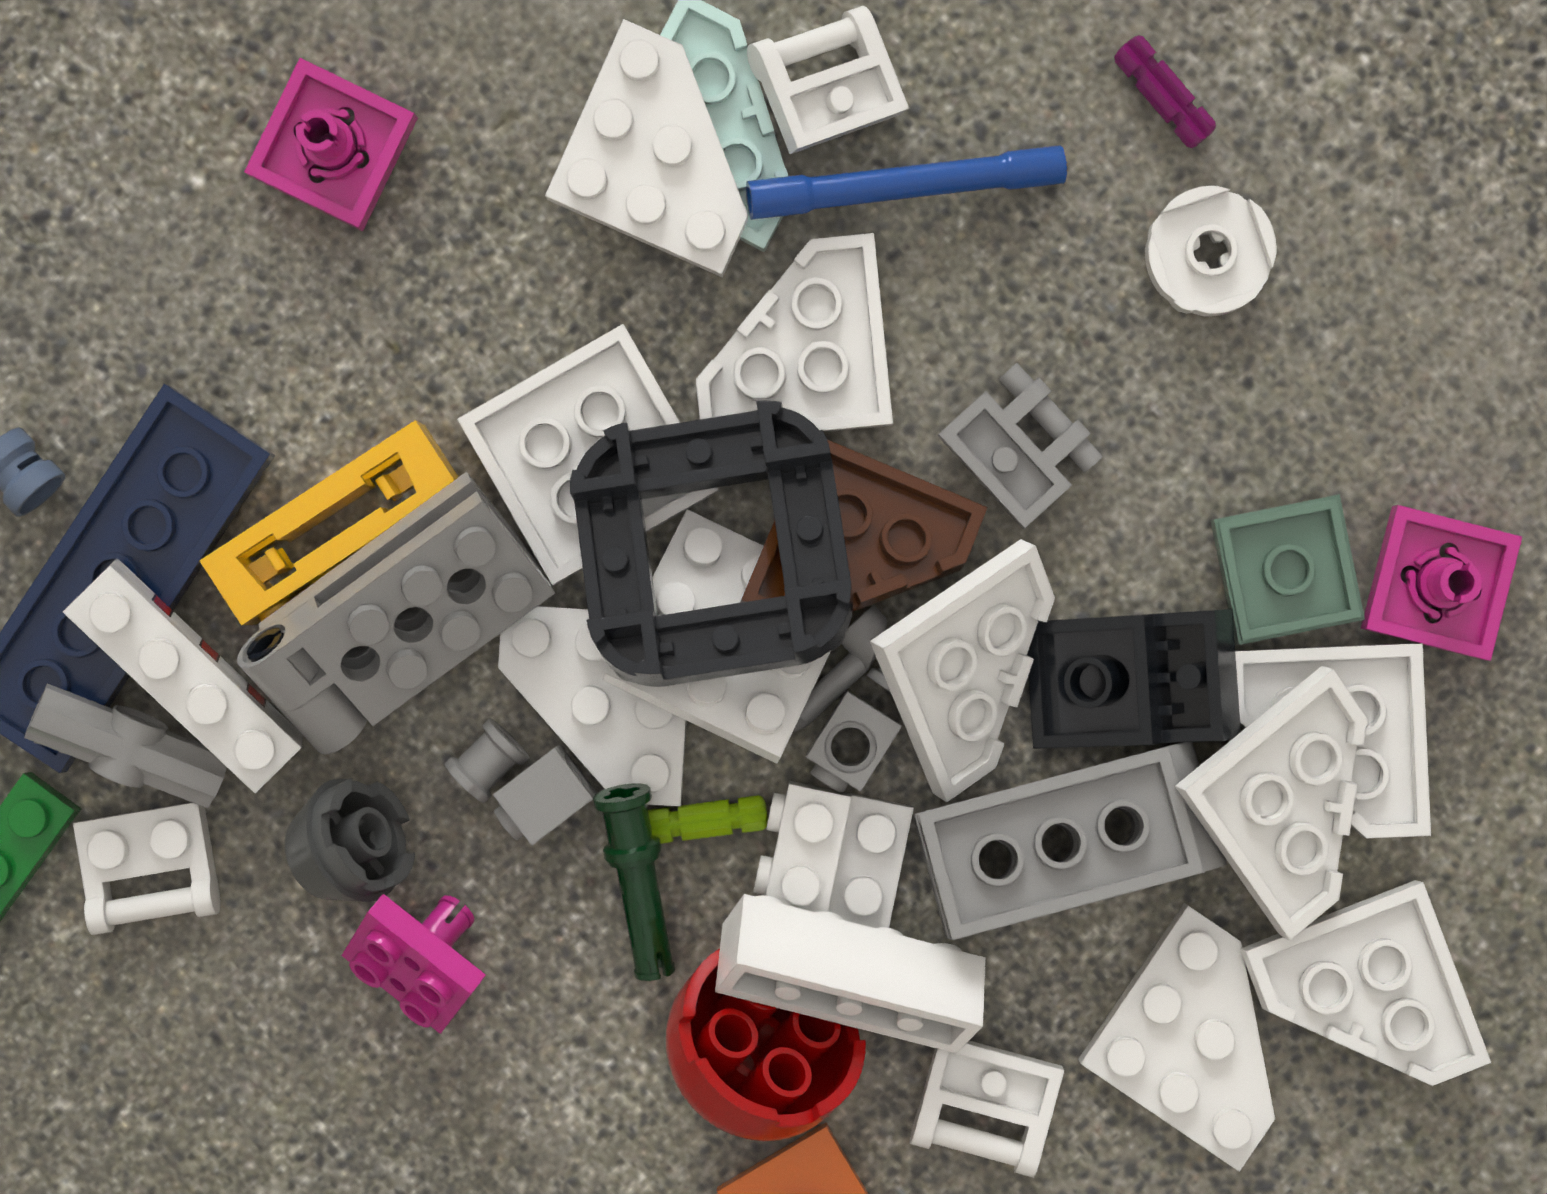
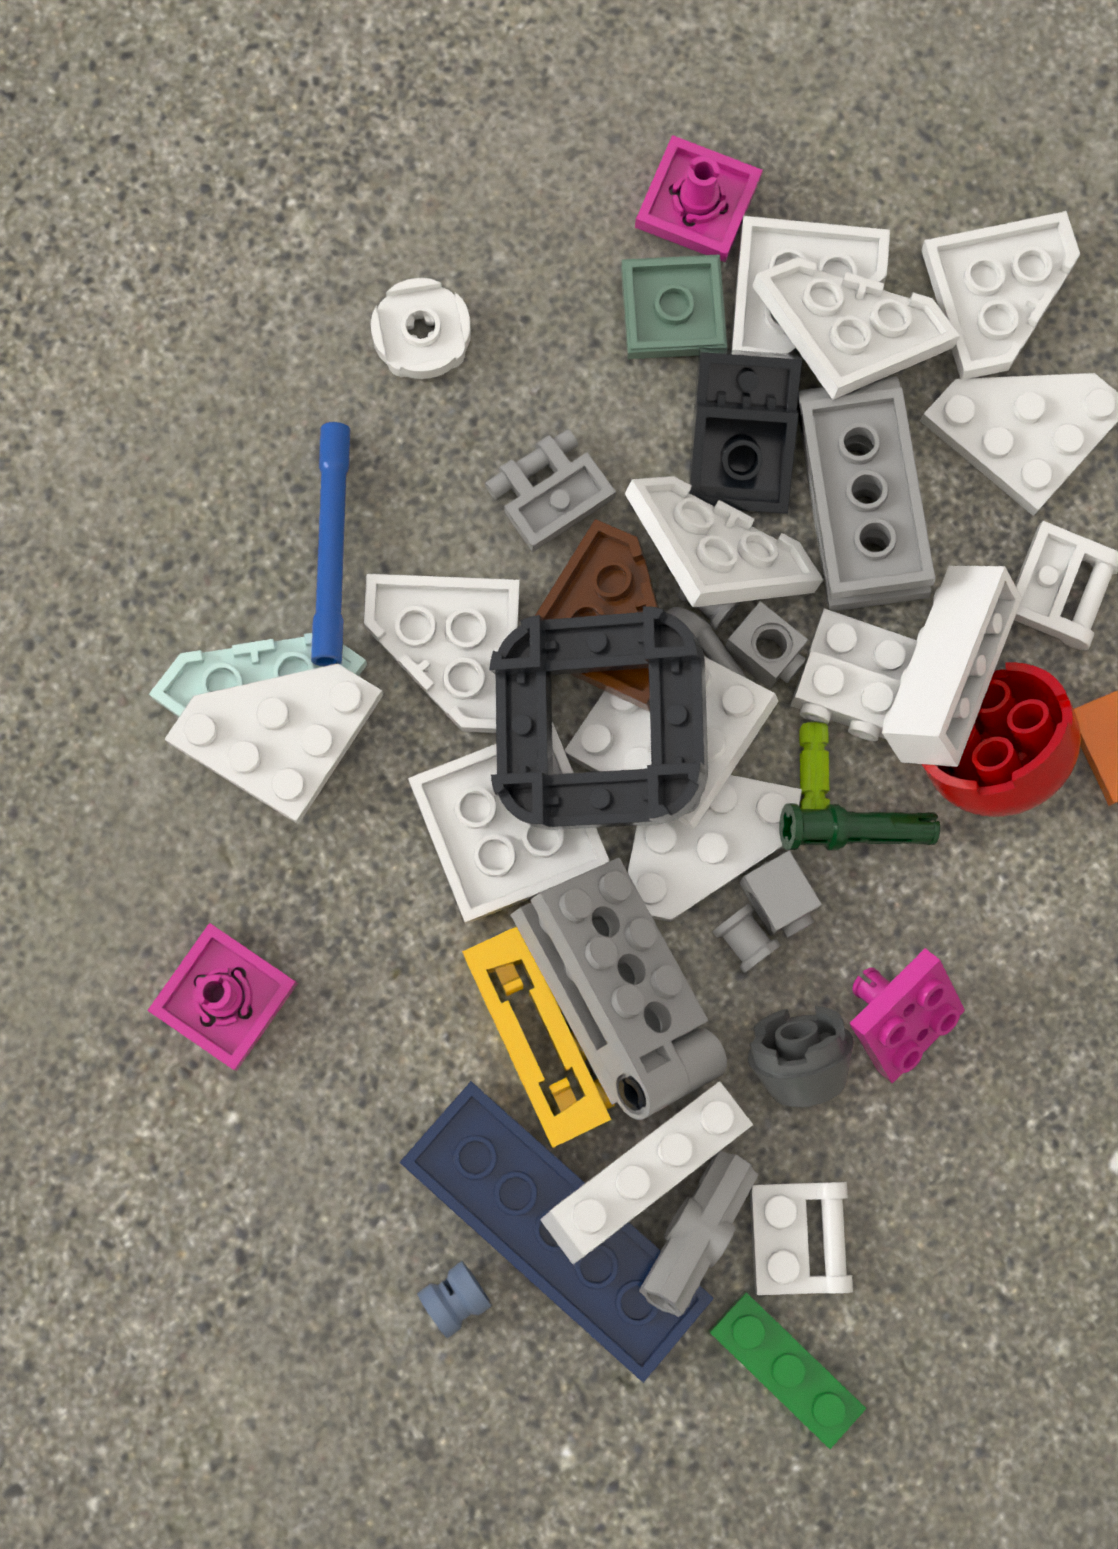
camera: 85 degrees left, 10 degrees down
(833, 99) = (256, 589): white plate -> none
(1165, 91) = (292, 345): magenta axle -> none

